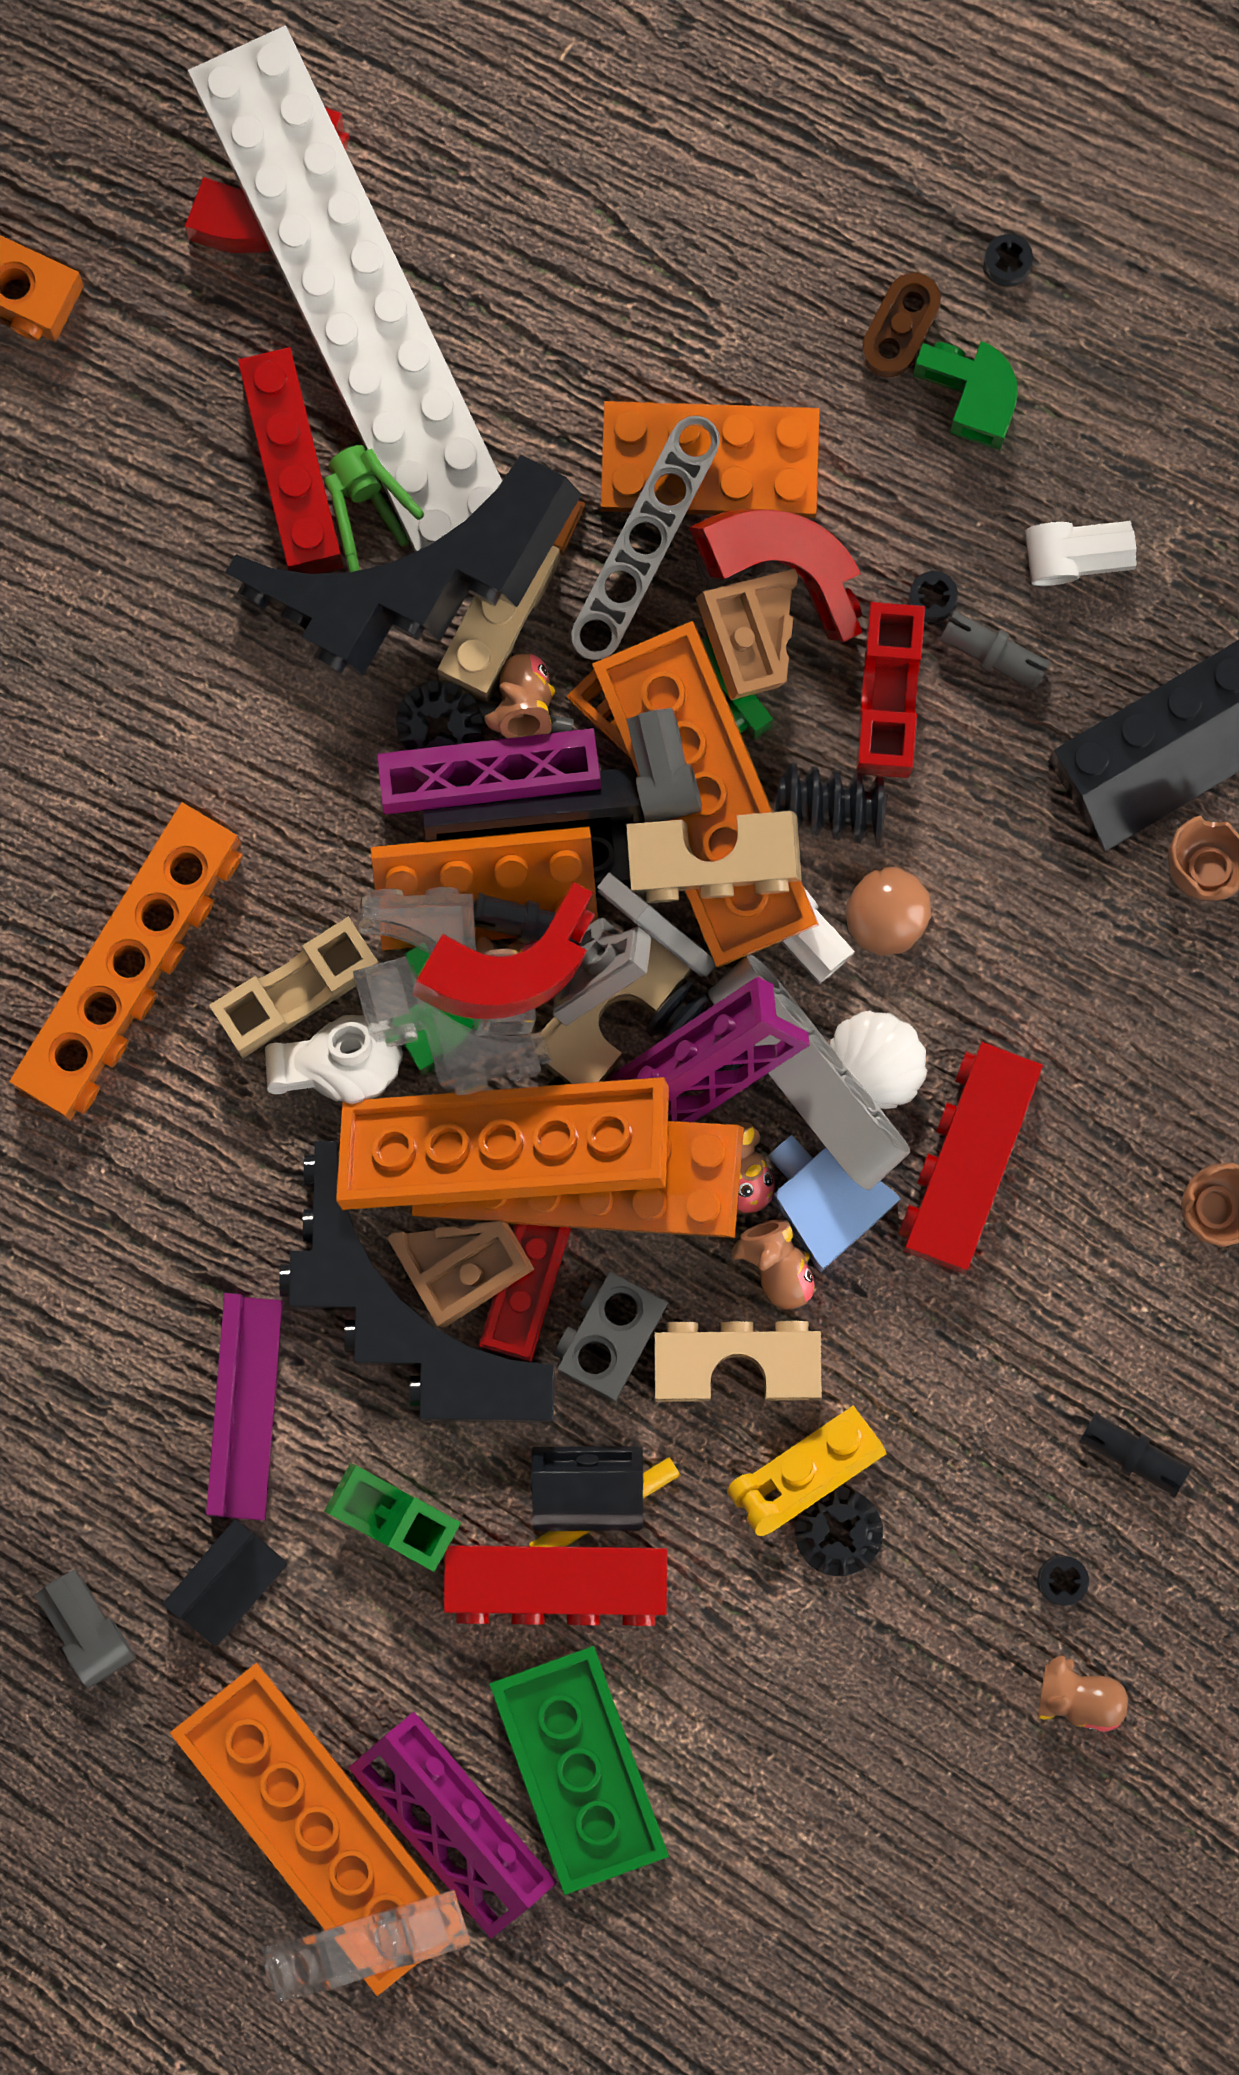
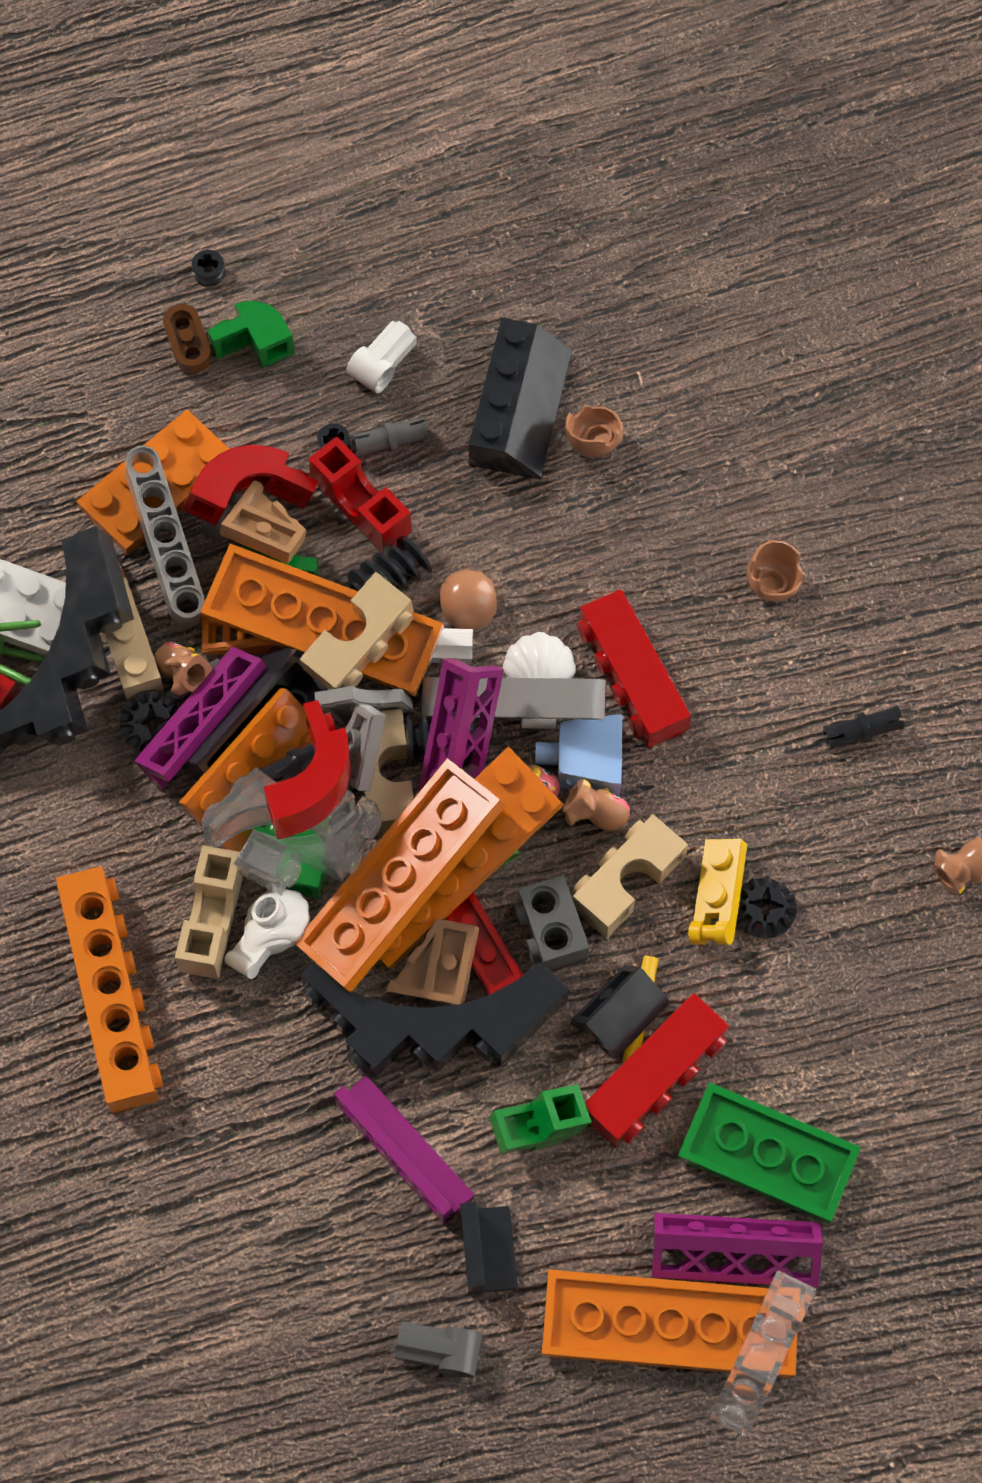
camera: 45 degrees left, 15 degrees down
(665, 780) = (295, 624): dark grey piece -> none
(1064, 1563) = (886, 829): black bush -> none

